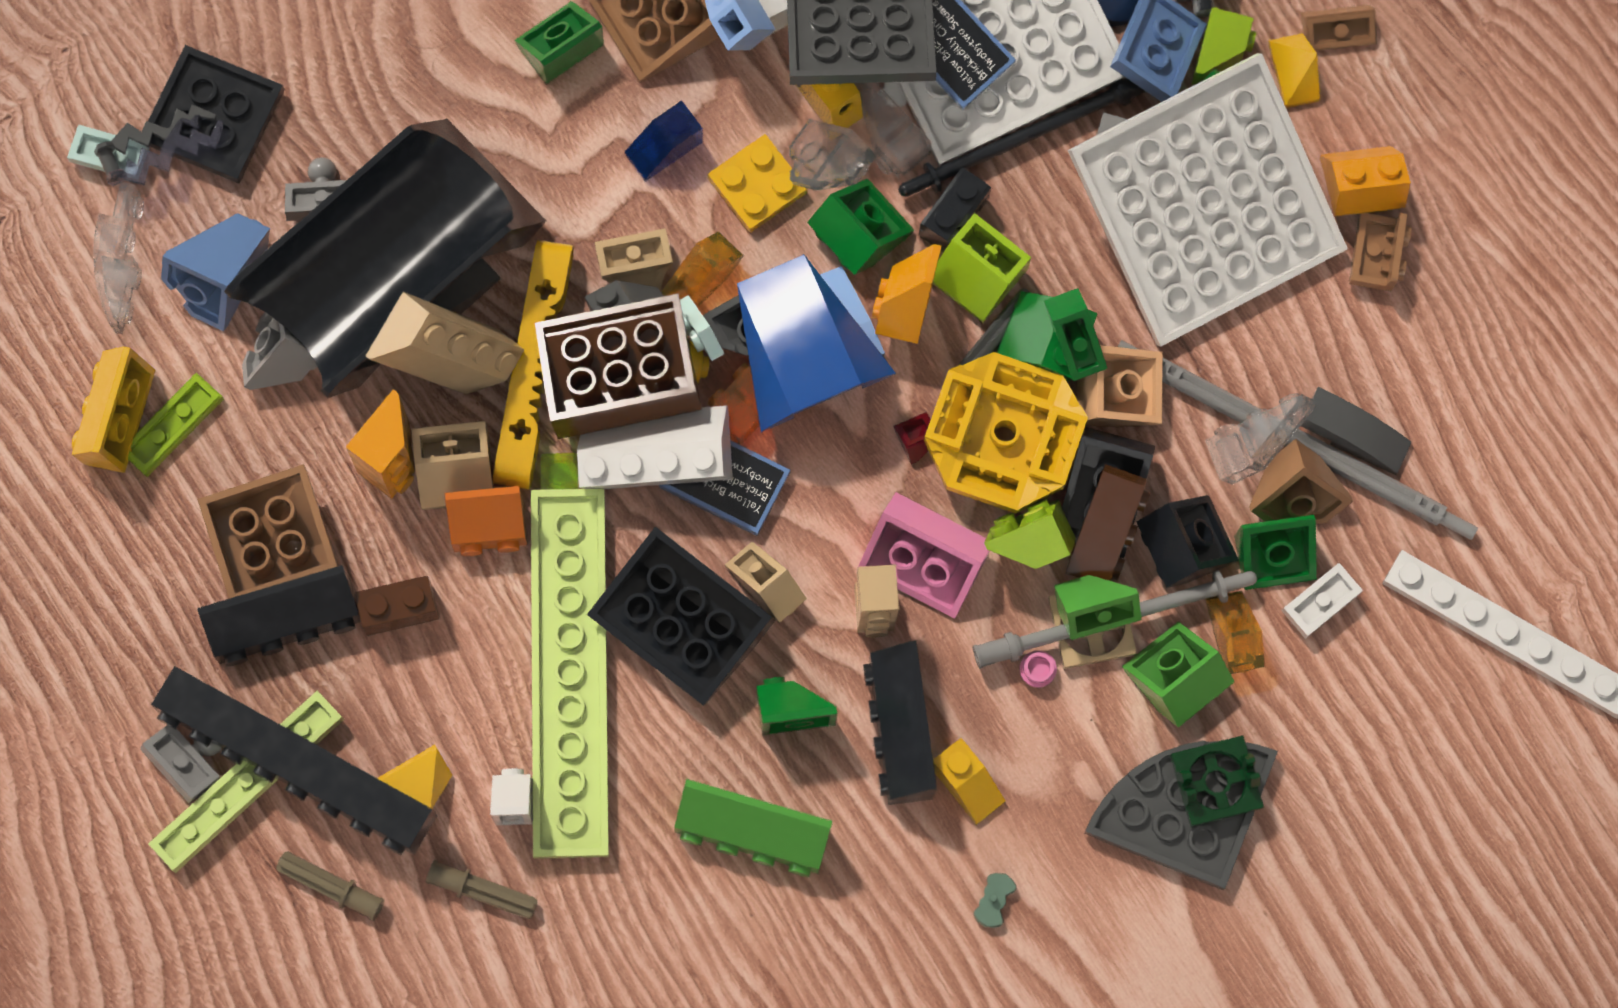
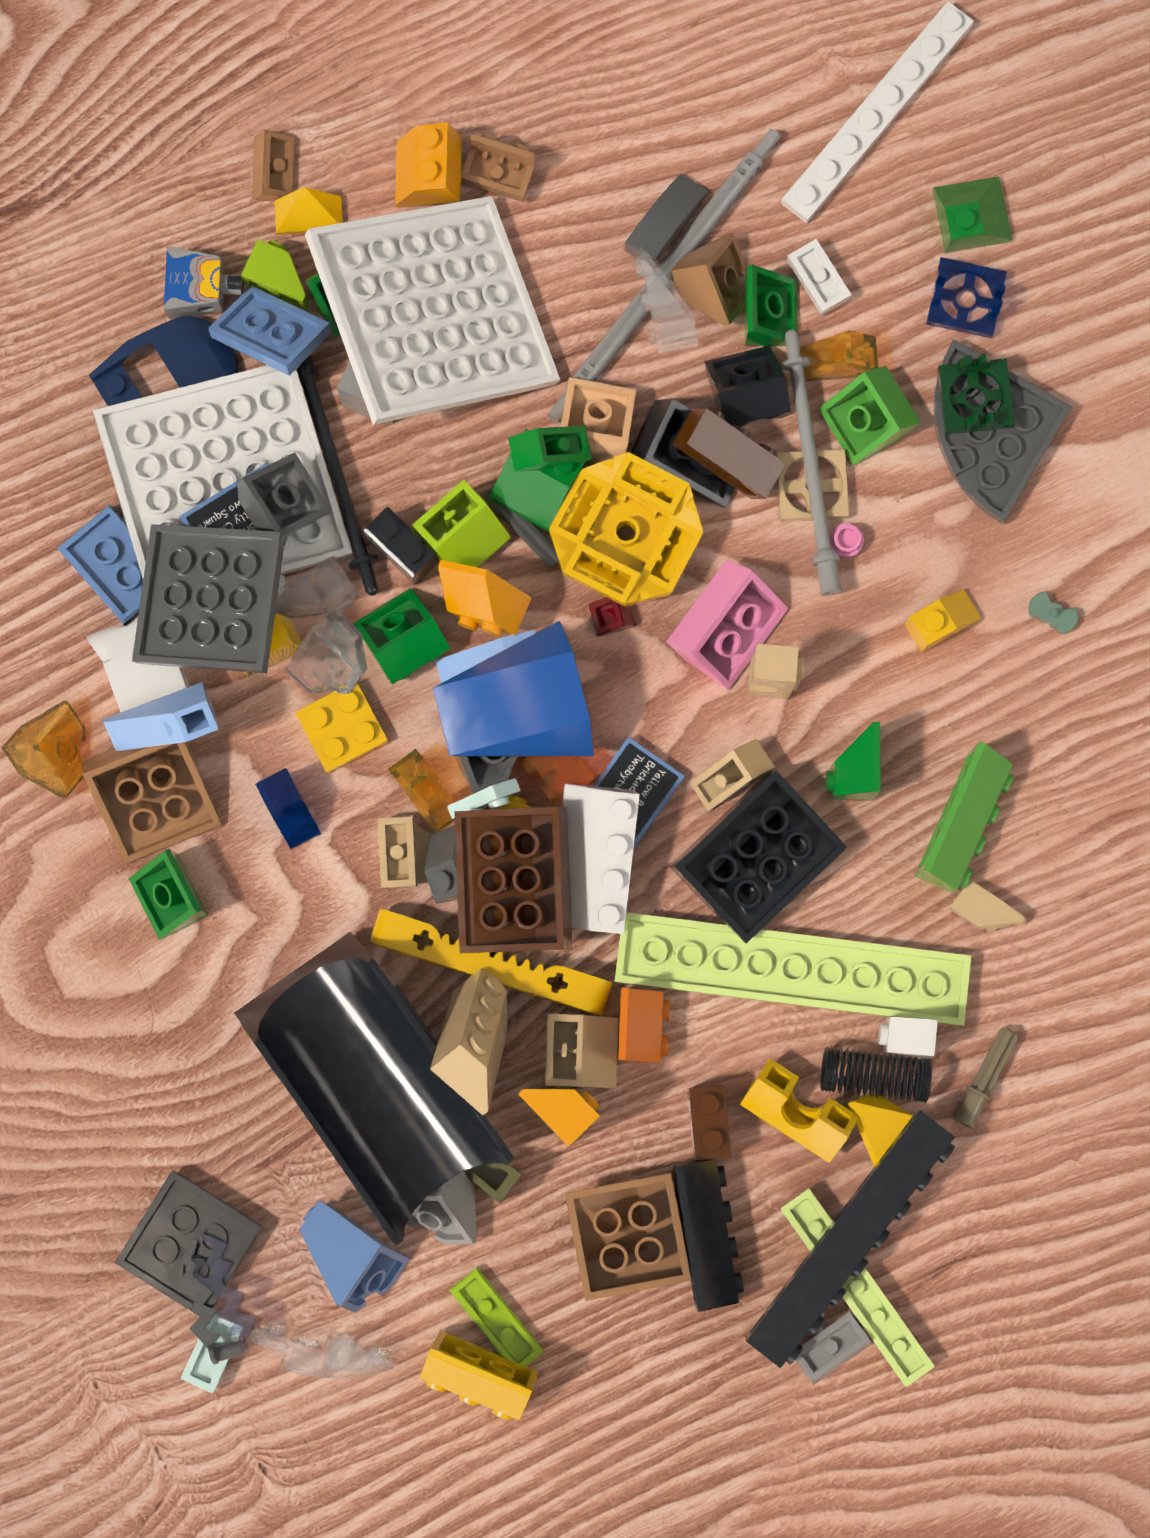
camera: 75 degrees left, 5 degrees up
(305, 196) = (292, 1146): light grey plate -> none
(311, 404) = (494, 1178): none -> olive slope
(330, 885) = (964, 1219): dark tan axle -> none
(428, 668) = (817, 1129): none -> yellow arch
(475, 769) = (922, 1079): none -> black piece
(559, 471) = (600, 952): clear neon green plate -> none
(660, 865) = (985, 909): none -> tan slope
(901, 724) = (887, 668): black slope -> none
(978, 77) = (281, 497): none -> dark grey slope
(1033, 537) = (730, 522): lime slope -> none
(1095, 605) = (803, 476): bright green slope -> none
(1355, 736) = (992, 277): none -> clear blue piece
(1424, 757) = (972, 214): none -> green slope

